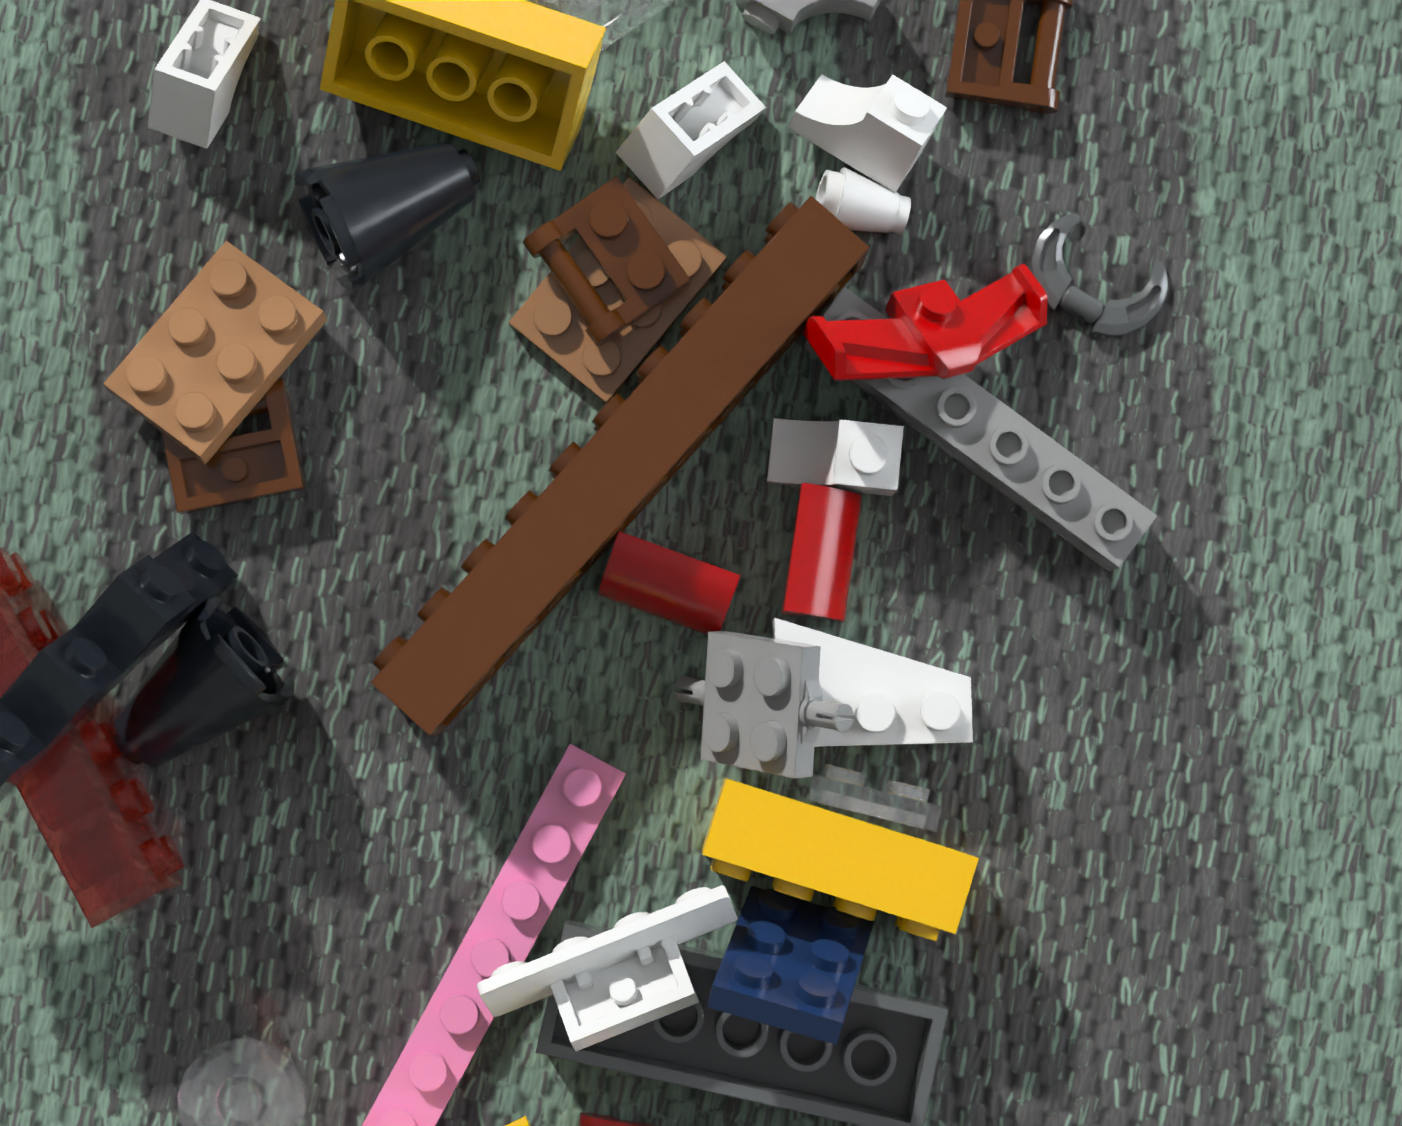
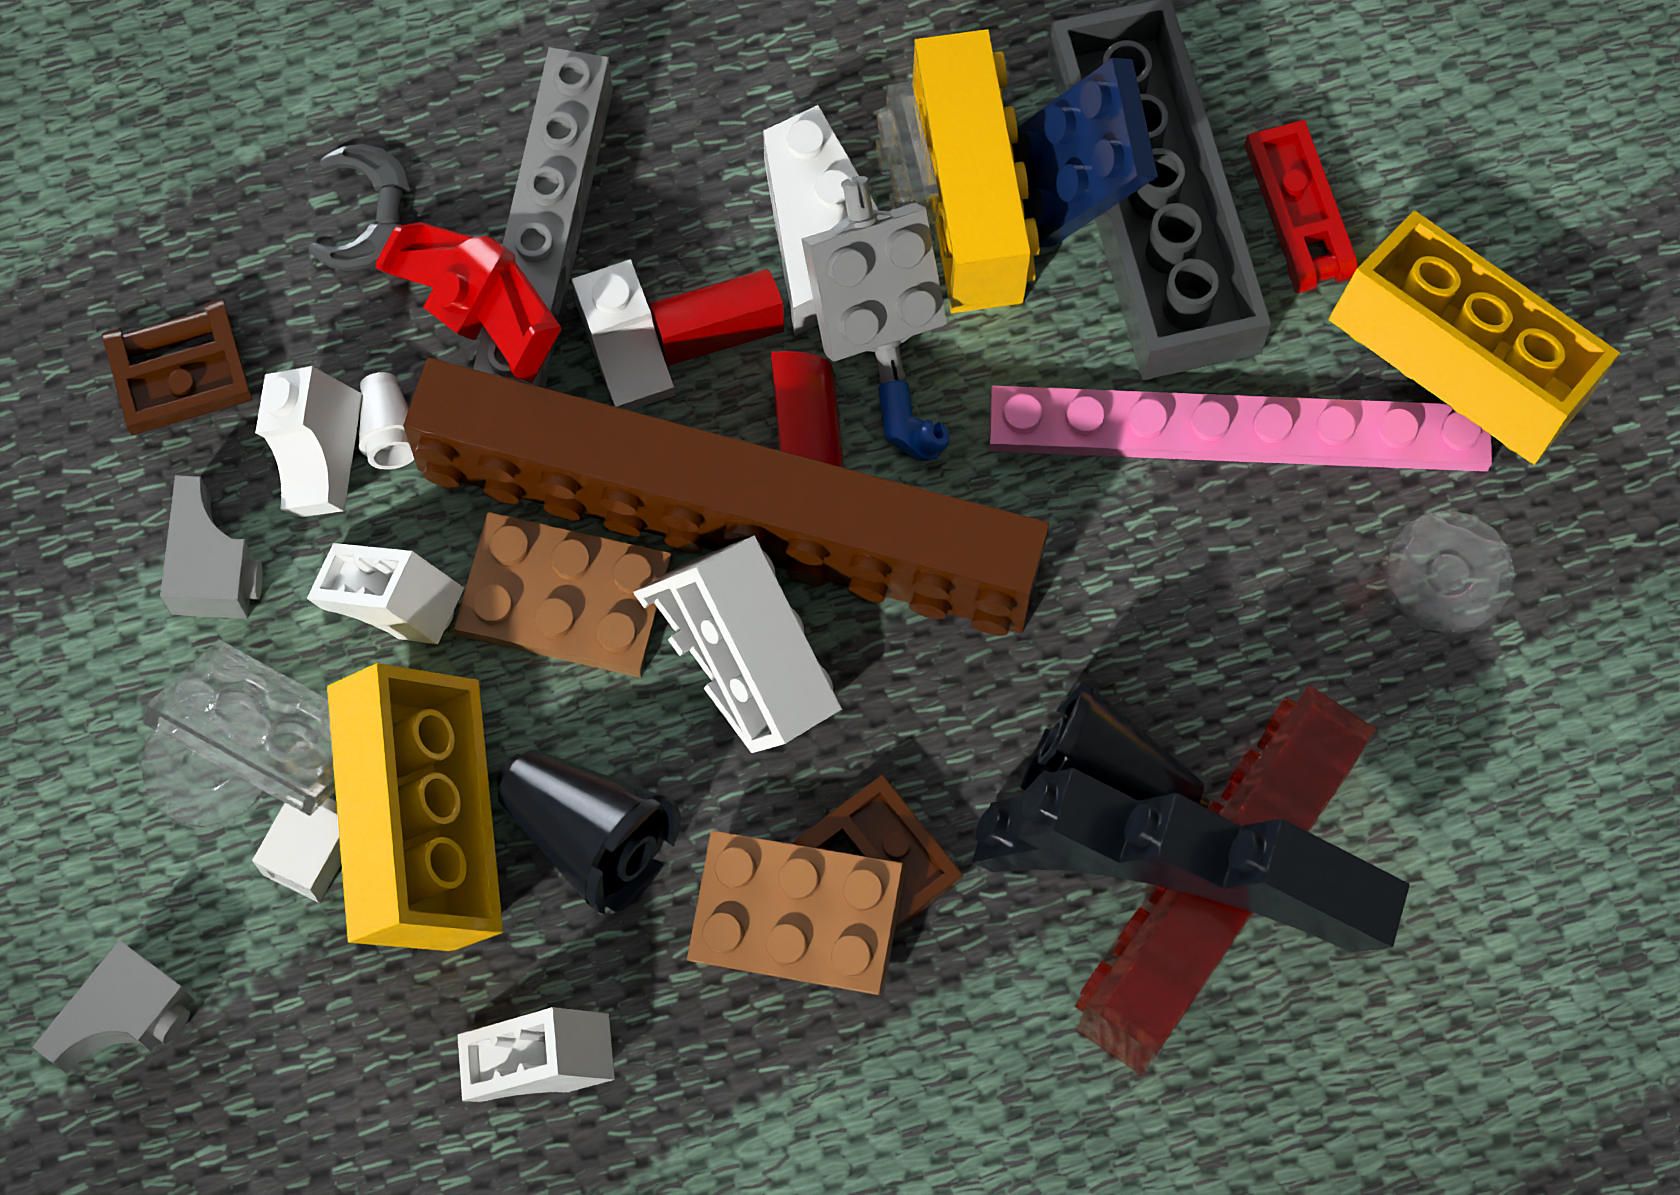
camera: 110 degrees left, 15 degrees down
(476, 421) = (747, 643): none -> white wedge
(618, 975) = (1174, 272): white bracket -> none
(623, 675) = (904, 430): none -> blue arm
(625, 250) = (525, 590): reddish brown plate -> none

